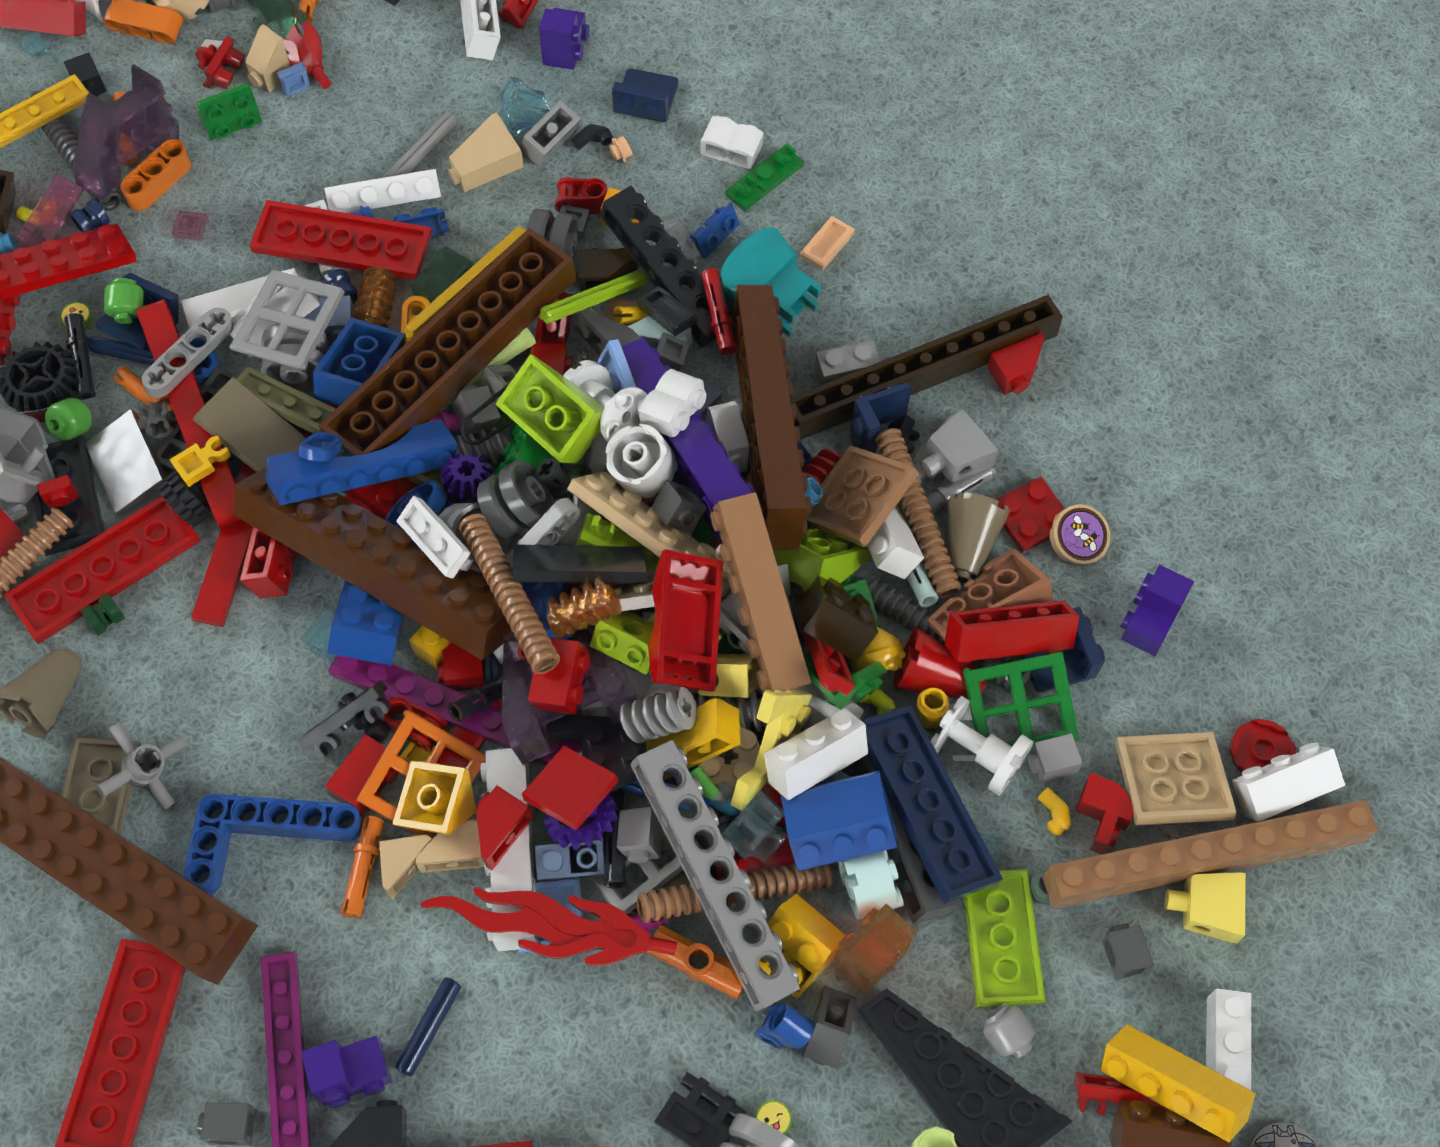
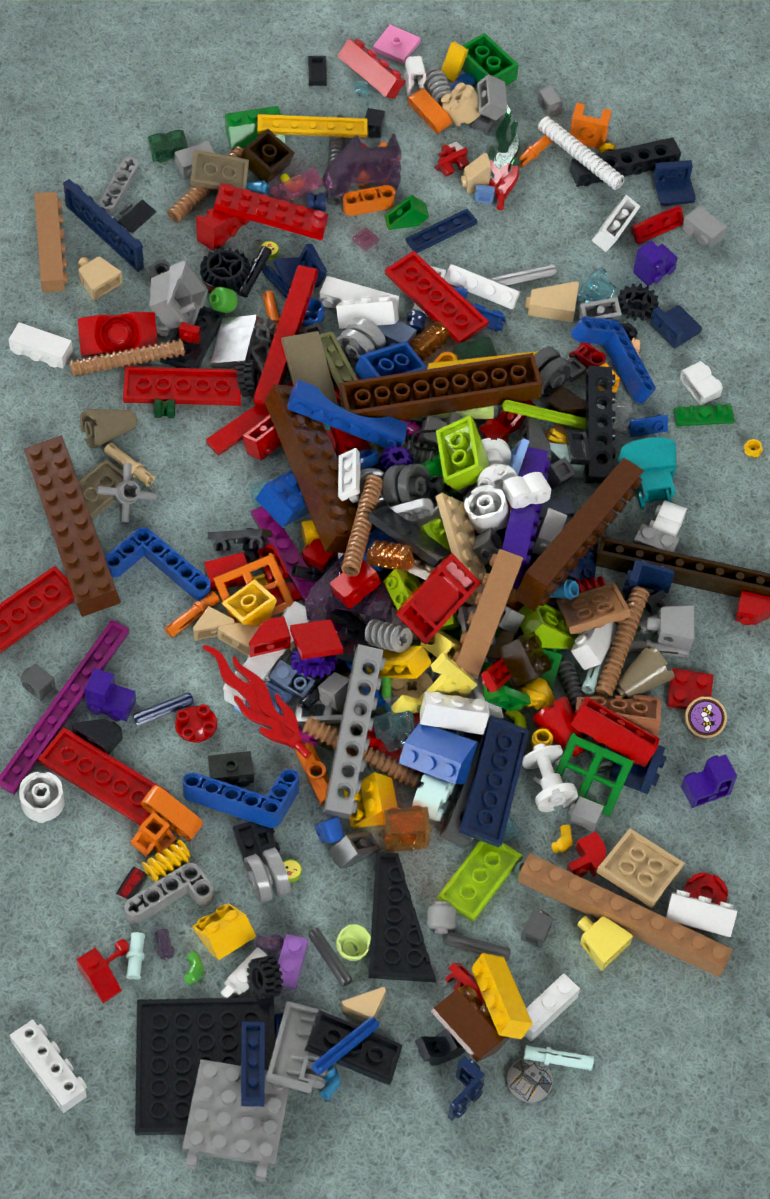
camera: 35 degrees right, 5 degrees down
(104, 721) = (137, 468): none -> tan pin
(122, 300) = (296, 255): bright green head -> none
(191, 354) = (308, 307): light grey beam -> none
(196, 463) = (265, 362): yellow plate -> none
(218, 161) = (407, 214): none -> green slope
(229, 111) = (434, 190): green bracket -> none
(276, 156) = (441, 231): none -> dark blue tile
(288, 319) = (369, 319): light grey window -> none
(320, 446) = (329, 392): blue tile -> none
(488, 1014) = (196, 723): none -> red dish
(582, 92) = (637, 301): none -> black gear
(587, 1043) = (232, 768): none -> pearl dark grey brick
(614, 164) = (621, 351): none -> blue beam
(639, 1071) = (243, 803): none -> blue beam
(721, 322) = (607, 463): red pin -> none
(827, 243) = (707, 473): light nougat tile -> none
(834, 325) = (668, 518): none -> white brick
(851, 173) = (755, 444): none -> yellow plate
(1078, 1032) = (476, 946): none -> dark grey axle
(1261, 1122) = (558, 1057): none -> light aqua pin

